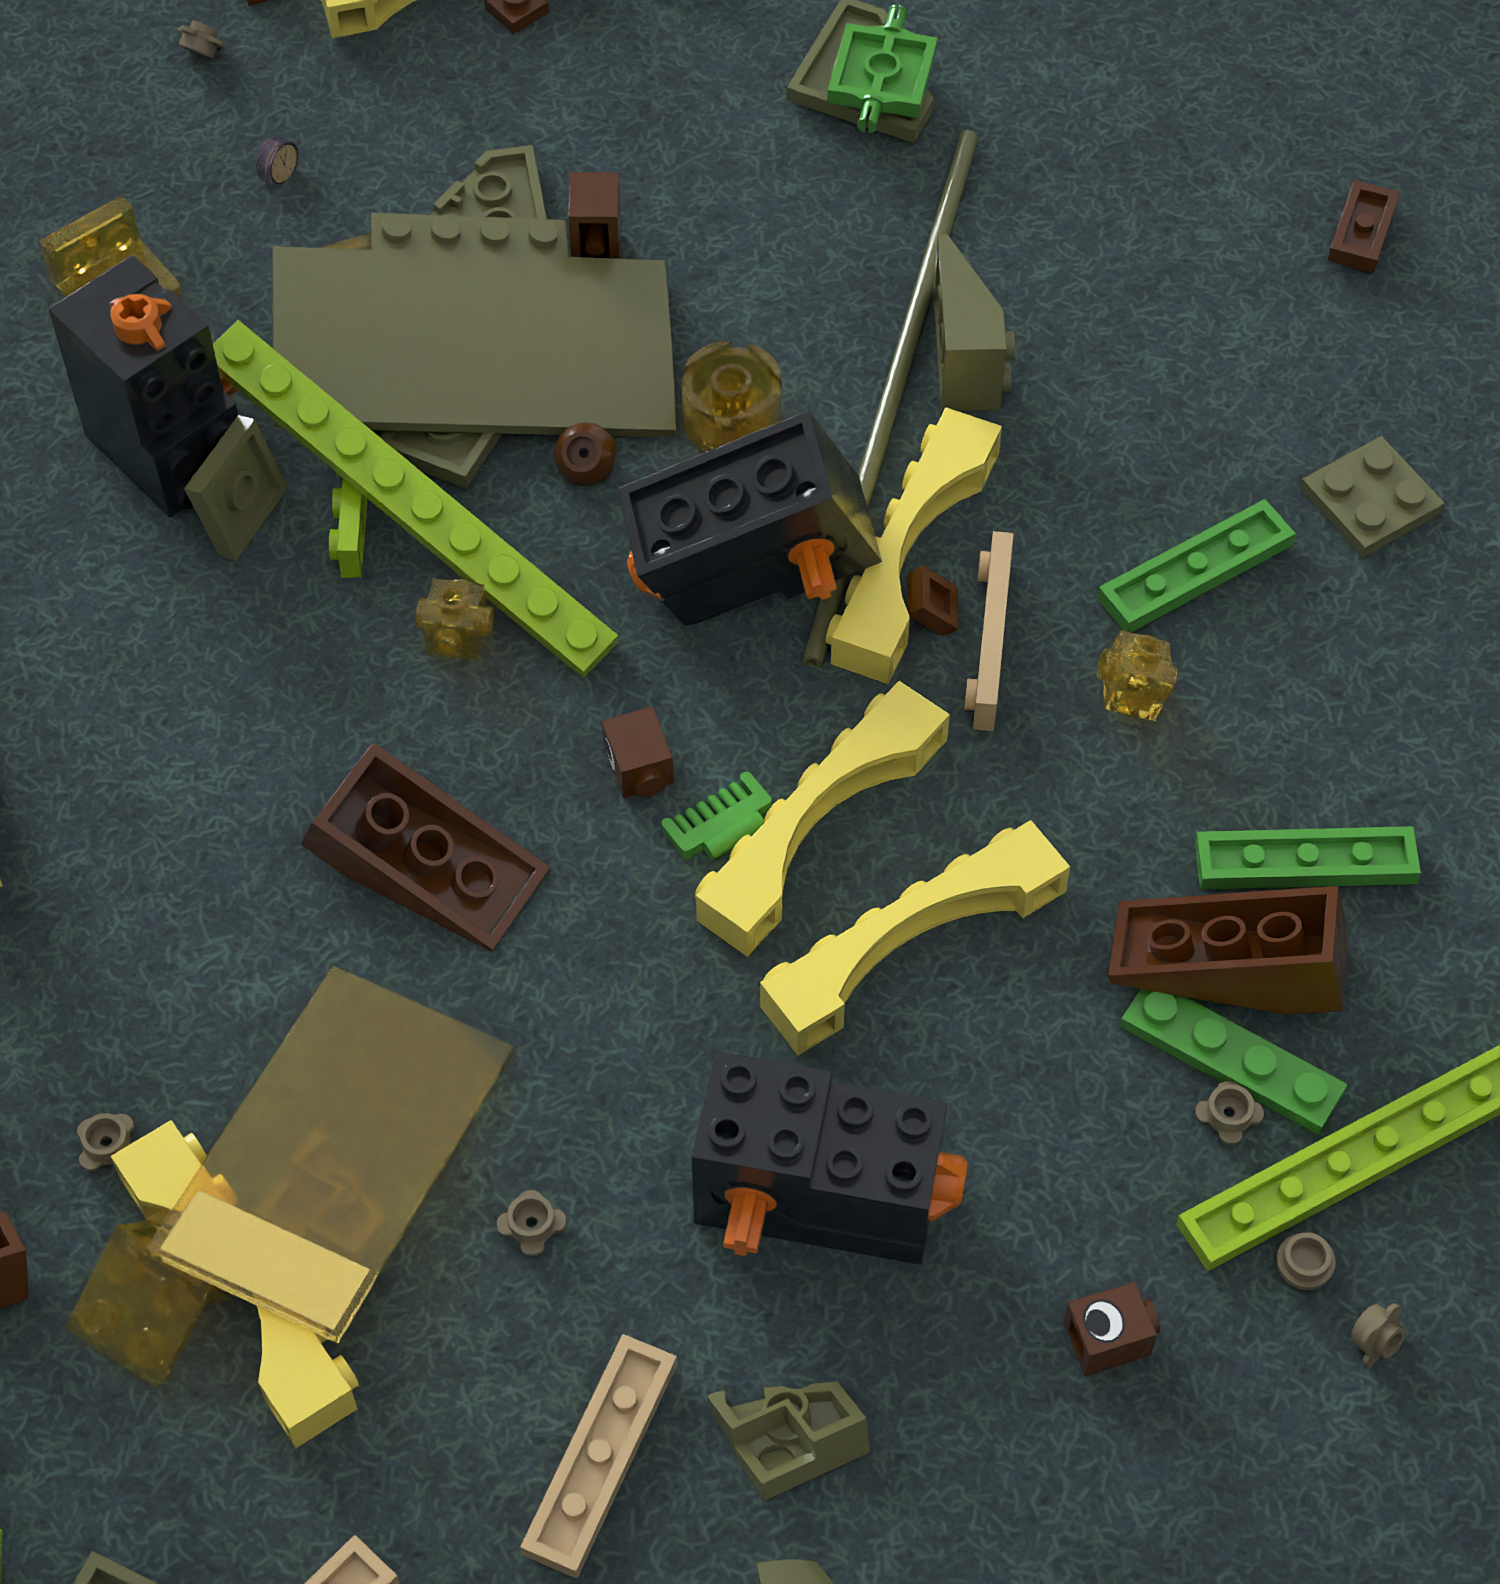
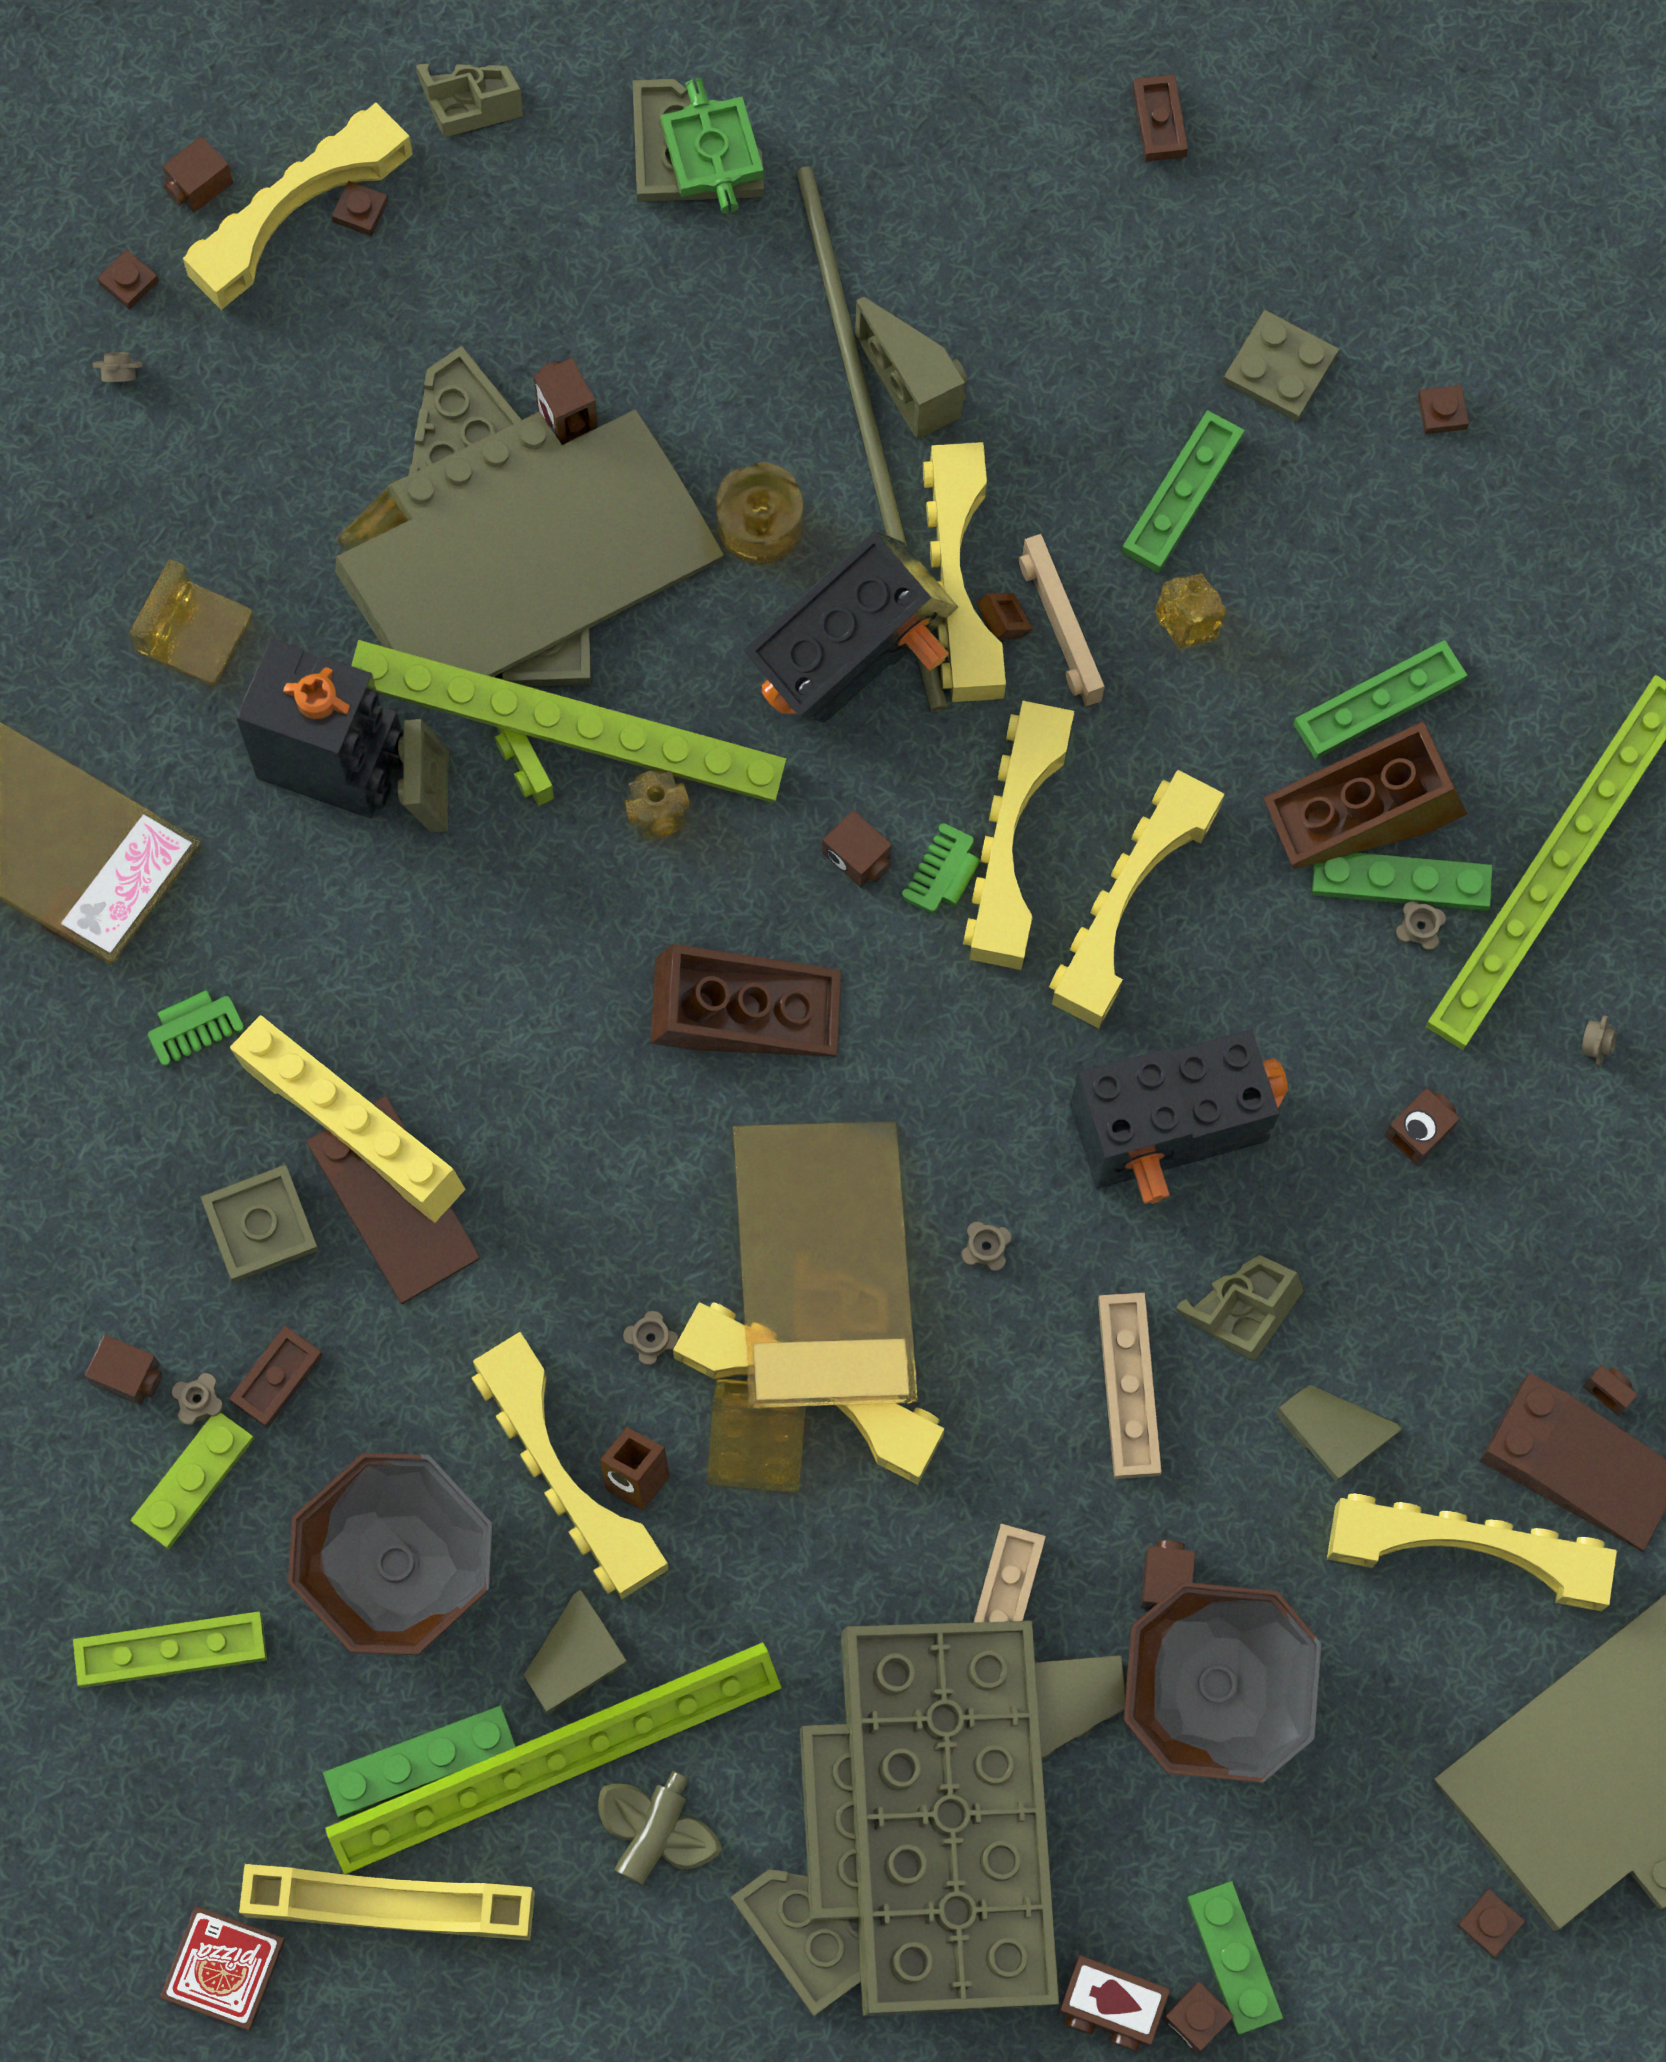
camera: 30 degrees left, 15 degrees up
(277, 160) = (257, 456): tile -> none
(596, 465) = (666, 598): reddish brown plate -> none
(1305, 1261) = (1525, 1011): dark tan plate -> none

